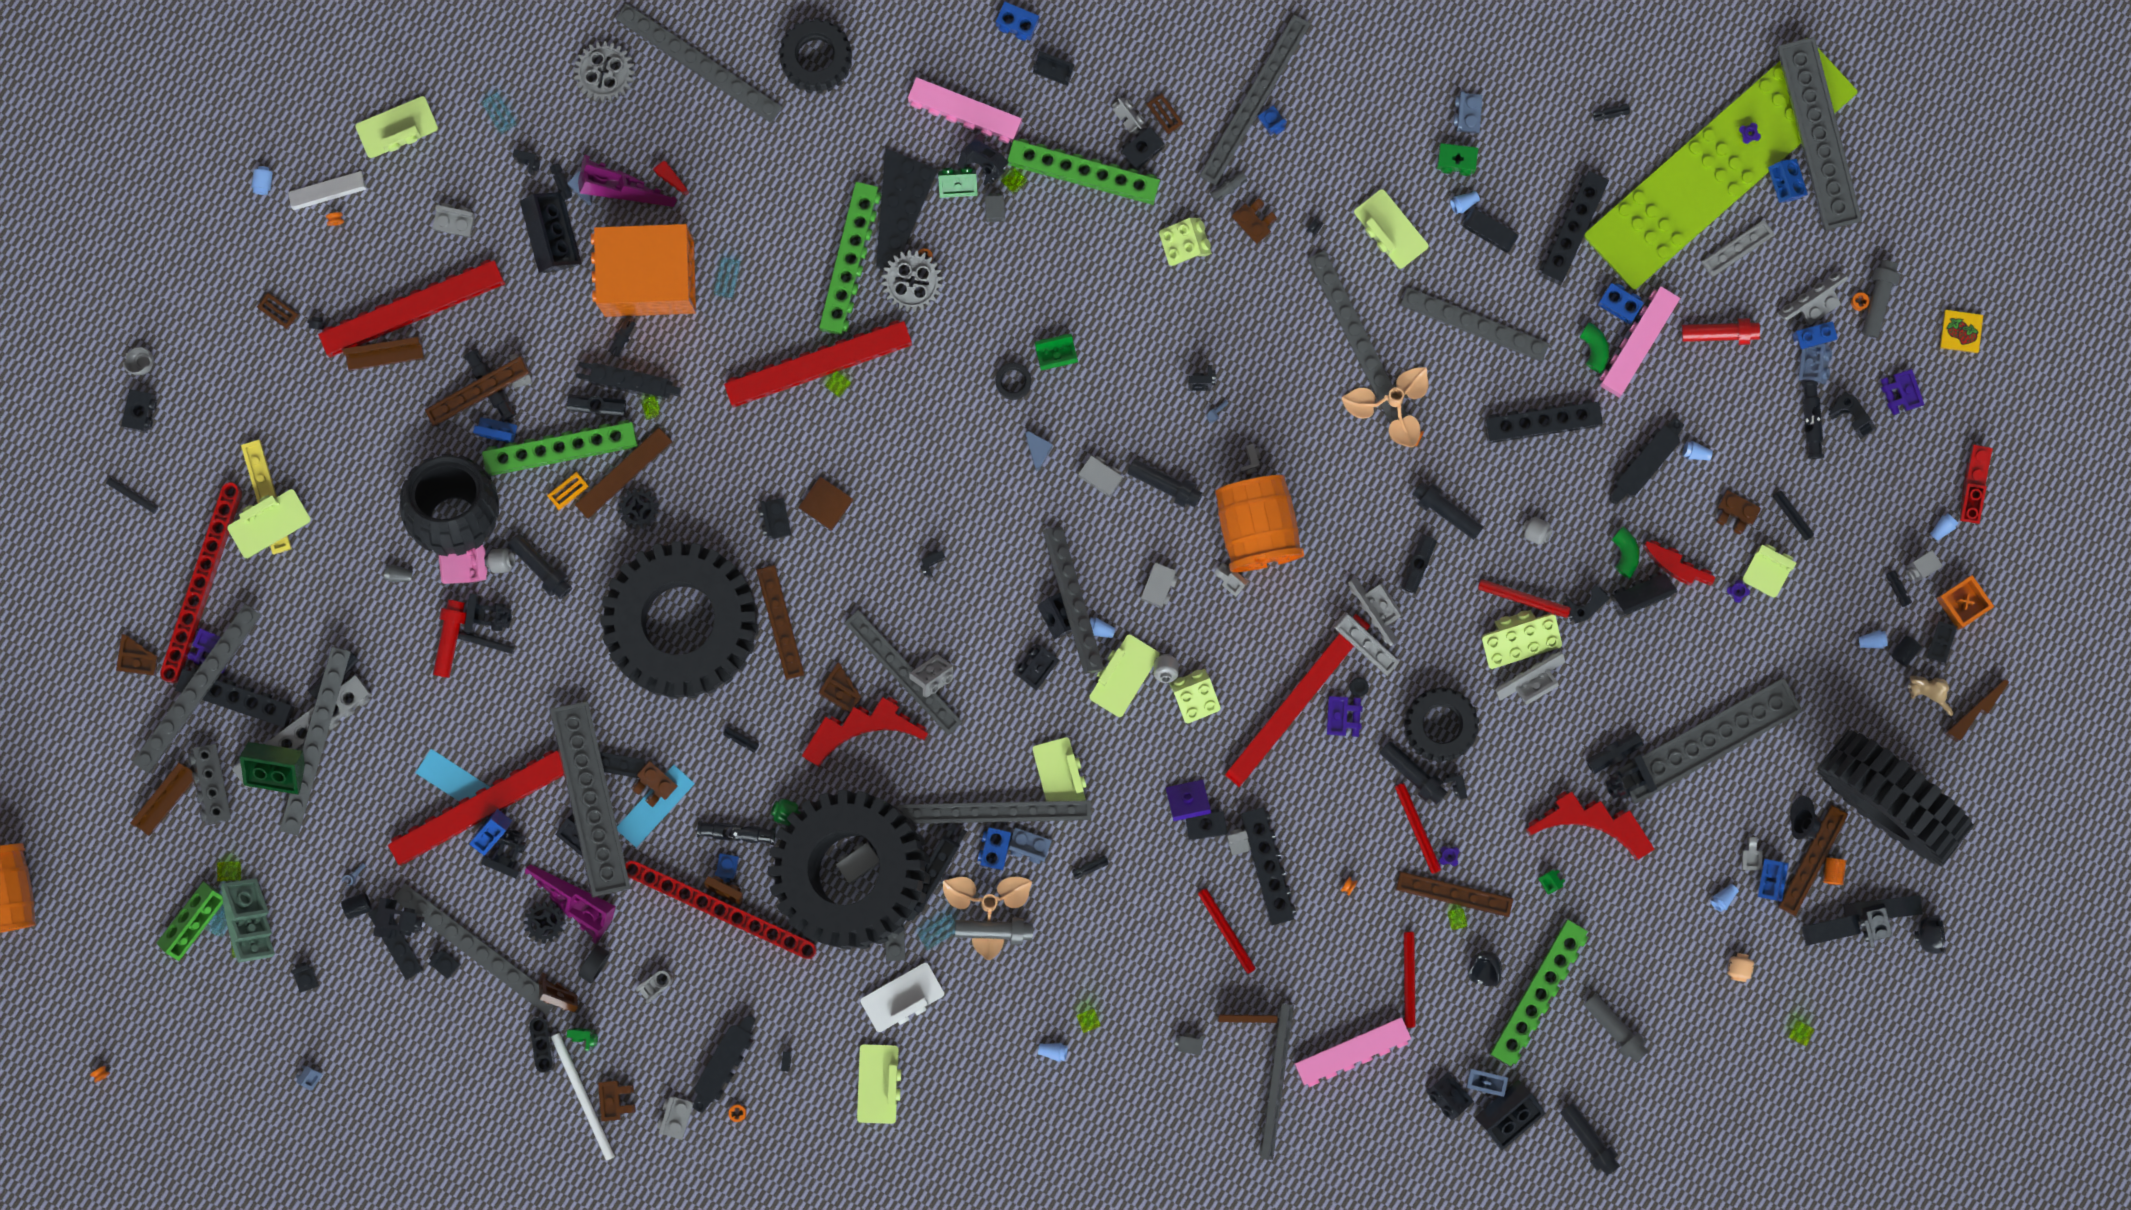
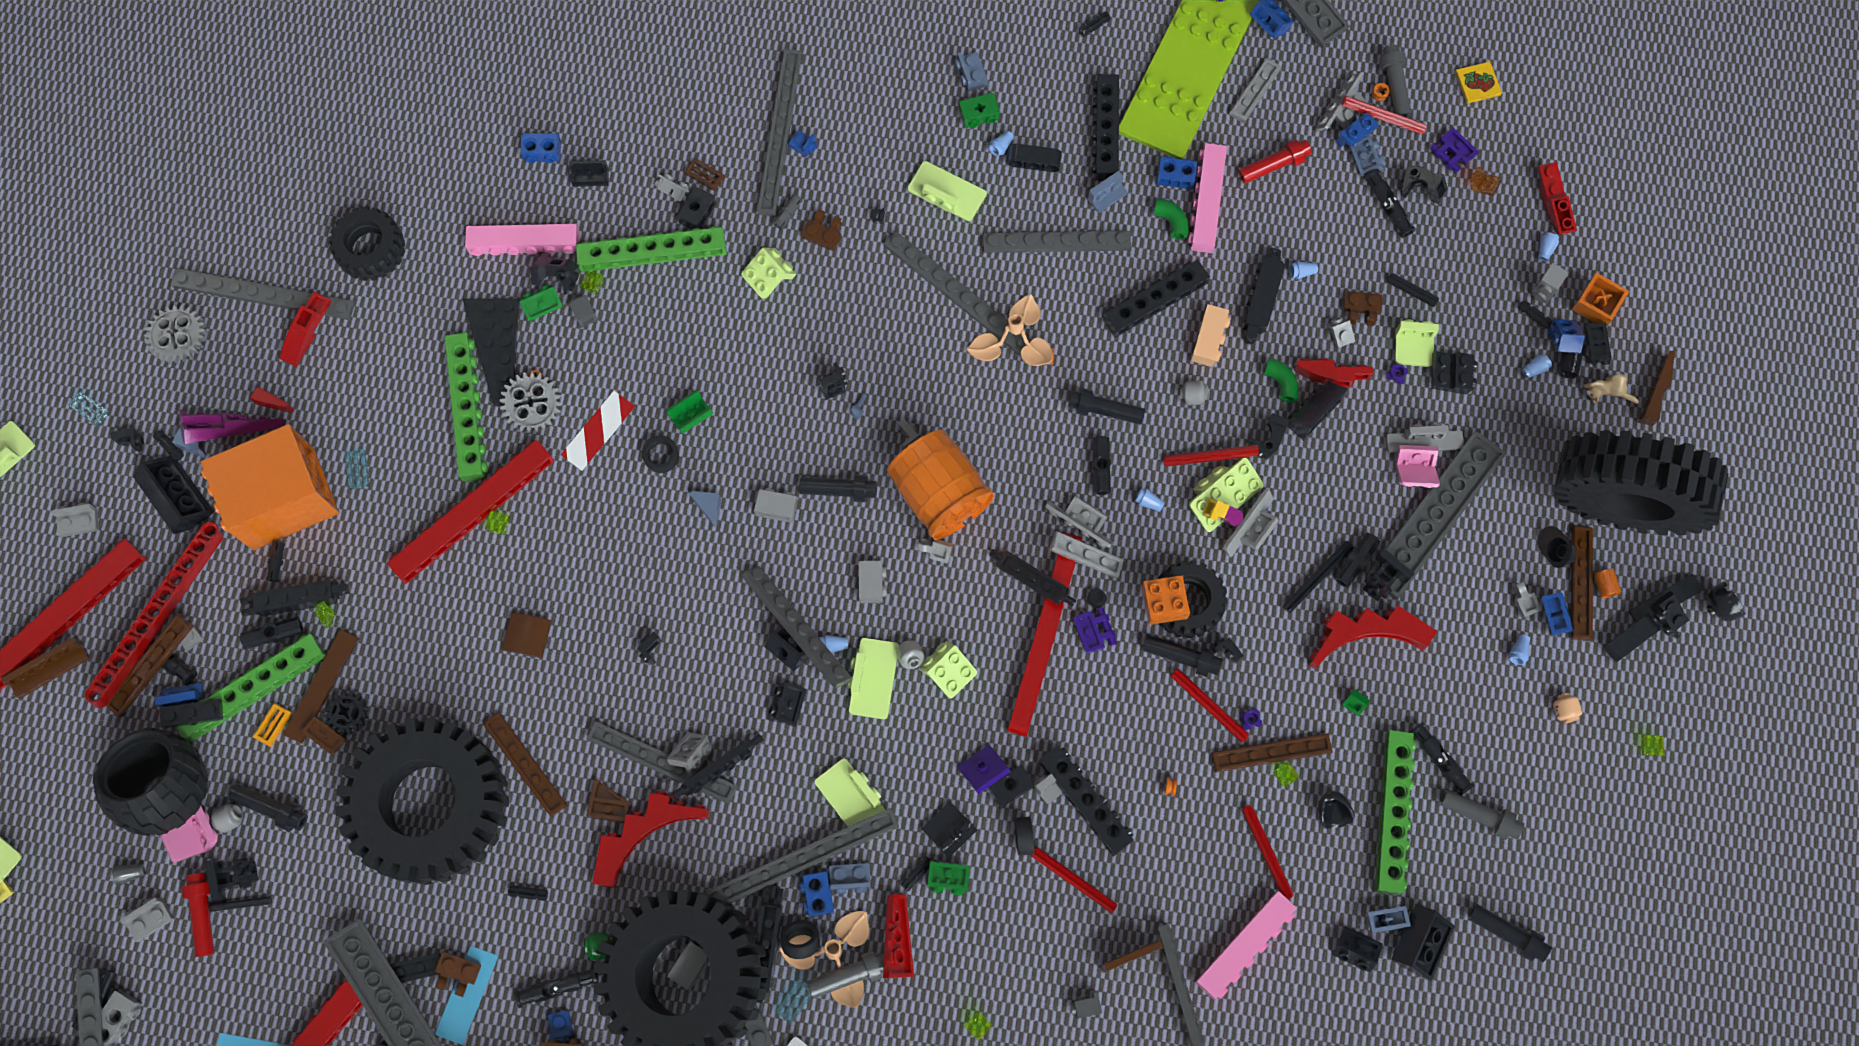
camera: 25 degrees left, 10 degrees down
(401, 622) = (147, 918): none -> light grey bracket
(495, 354) = (154, 623): none -> red beam
(501, 453) = (191, 713): none -> black plate
(610, 521) = (323, 736): none -> reddish brown plate
(726, 118) = (302, 329): none -> red slope
(775, 519) = (484, 669): black bracket -> none
(945, 702) = (713, 771): none -> black plate
(964, 332) = (597, 430): none -> sticker
(968, 871) = (803, 950): none -> black tyre
(1047, 922) = (897, 949): none -> red wing
(1116, 882) = (948, 878): none -> green bracket
(1135, 840) = (949, 829): none -> black hinge
(1198, 874) = (1024, 835): none -> black tyre
(1307, 644) = (1032, 577): none -> black plate
(1416, 719) = (1165, 600): none -> orange brick
(1447, 614) = (1147, 499): none -> light blue cone
(1510, 656) = (1227, 513): none -> leg
(1544, 297) = (1107, 192): none -> sand blue bracket
(1572, 752) = (1318, 576): none -> black axle
(1578, 481) = (1211, 336): none -> light nougat brick
(1603, 960) = (1435, 750): none -> black piece
(1704, 528) = (1341, 331): none -> light grey bracket
(1712, 689) = (1417, 465): none -> bright pink bracket
(1728, 664) = (1432, 435): none -> light grey bracket
(1791, 612) = (1453, 372): none -> black plate
(1849, 329) = (1384, 115): none -> axle
(1913, 623) = (1566, 335): none -> blue brick
(1914, 437) = (1484, 183): none -> clear orange bracket

